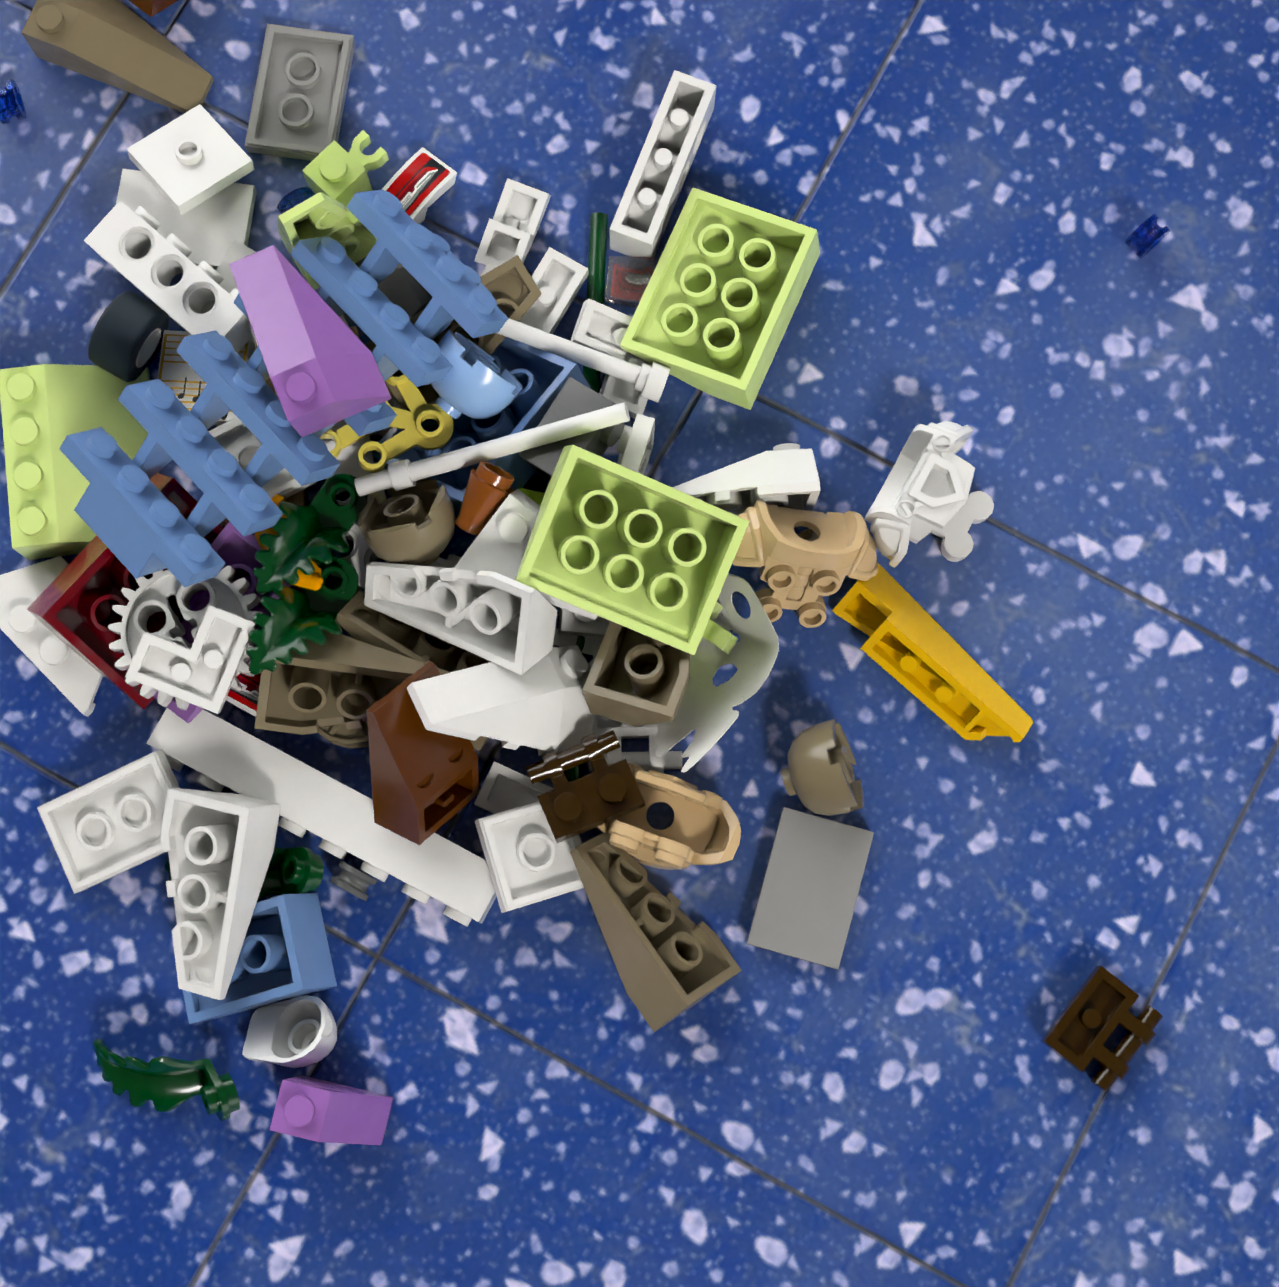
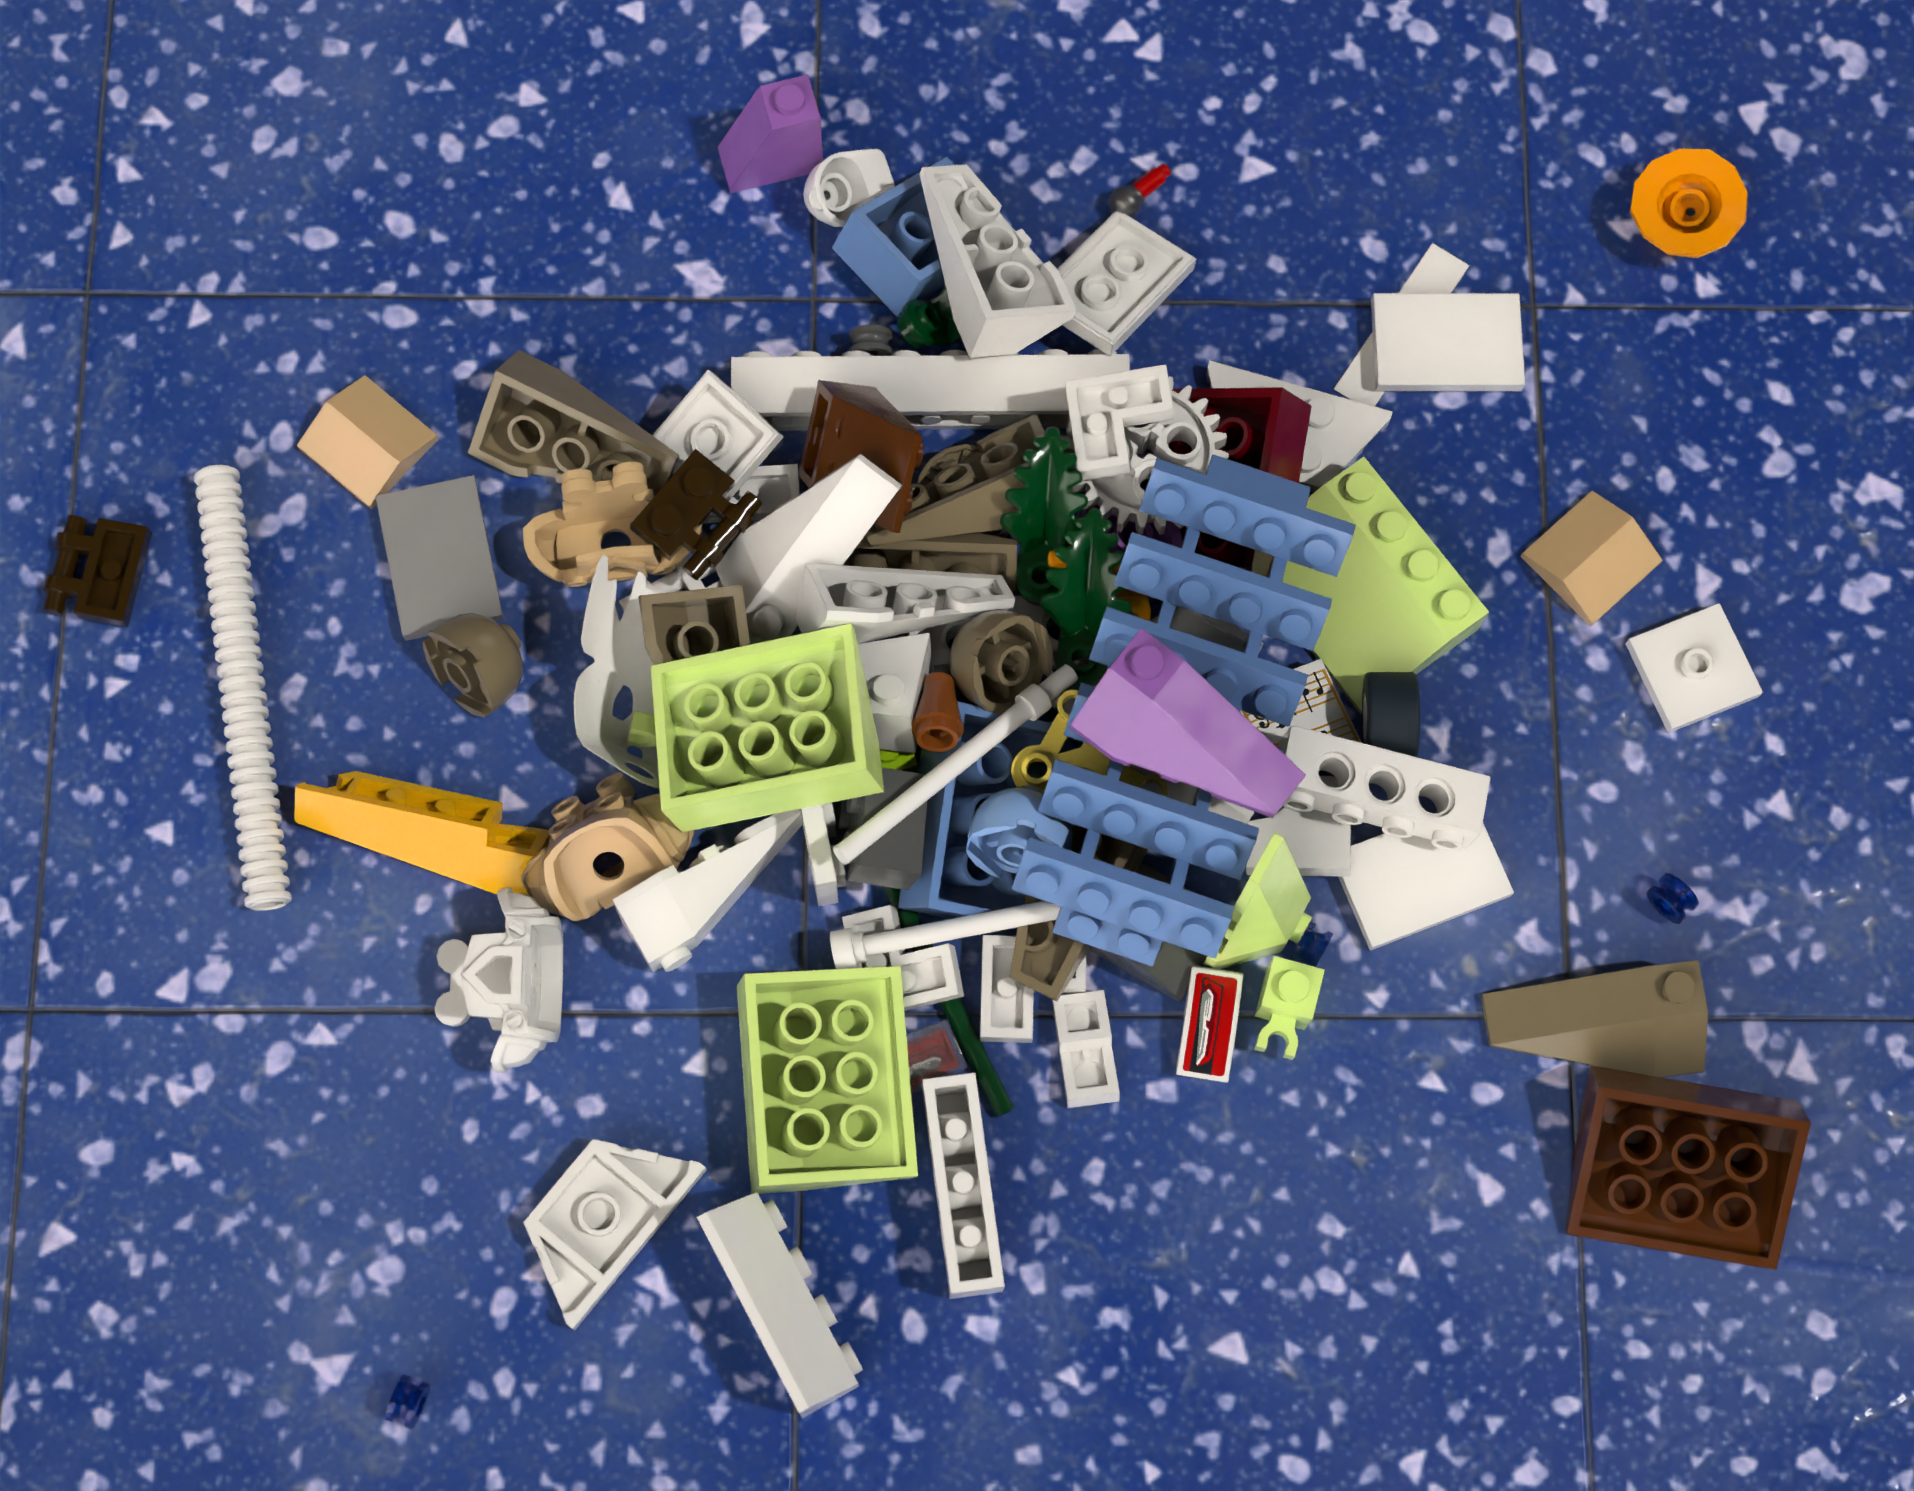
camera: 150 degrees right, 5 degrees down
(59, 898) = (1130, 197): none -> piece
(168, 1081) = (934, 99): dark green plant -> none
(190, 159) = (1451, 936): white plate -> none
(299, 92) = (1390, 1076): light grey tile -> none
(820, 1029) = (366, 440): none -> tan slope
(843, 154) = (779, 1302): none -> white slope
(937, 291) = (603, 1218): none -> white wing
(1024, 861) = (242, 688): none -> white piece

